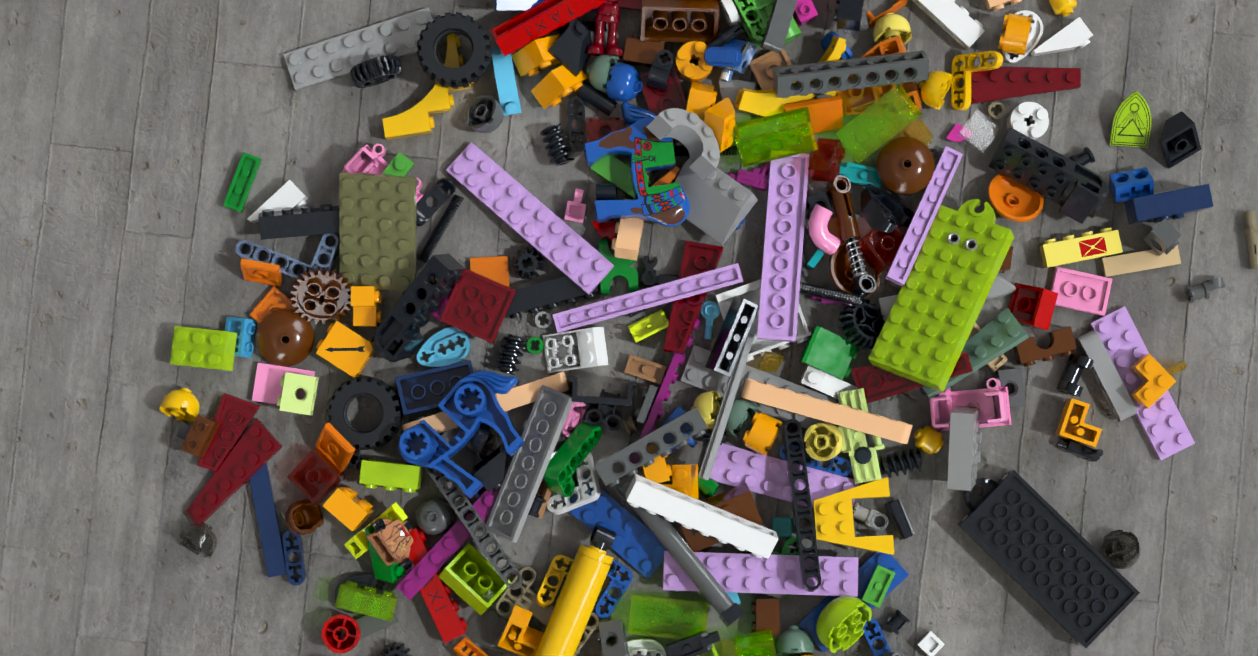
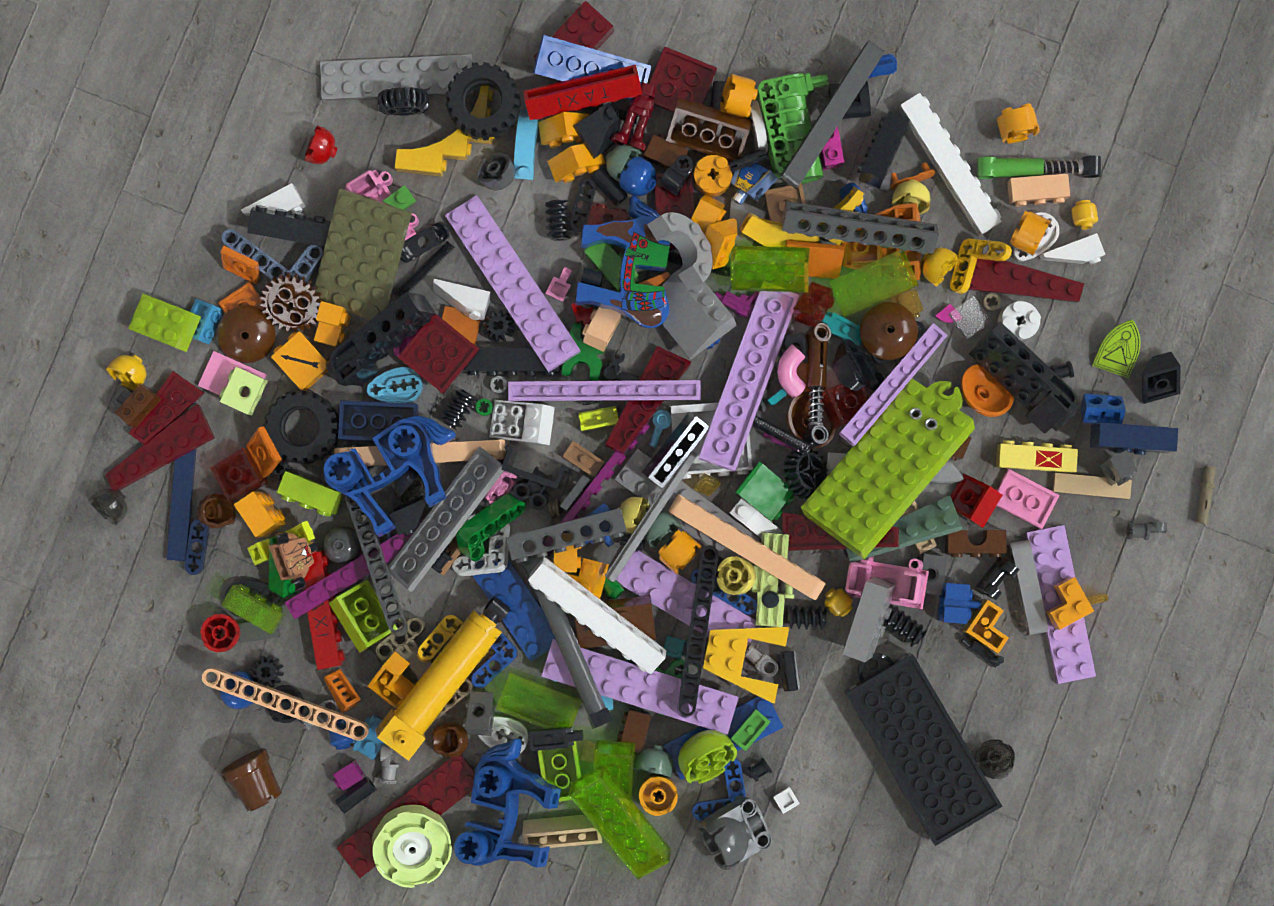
camera: 20 degrees right, 0 degrees up
(242, 182) = (246, 174): green plate -> none
(307, 136) = (320, 147): none -> red cylinder
(489, 246) = (465, 299): none -> white slope
(723, 56) = (740, 177): blue piece -> none
(999, 446) = (905, 627): none -> black piece
(1041, 408) = (956, 603): none -> blue brick

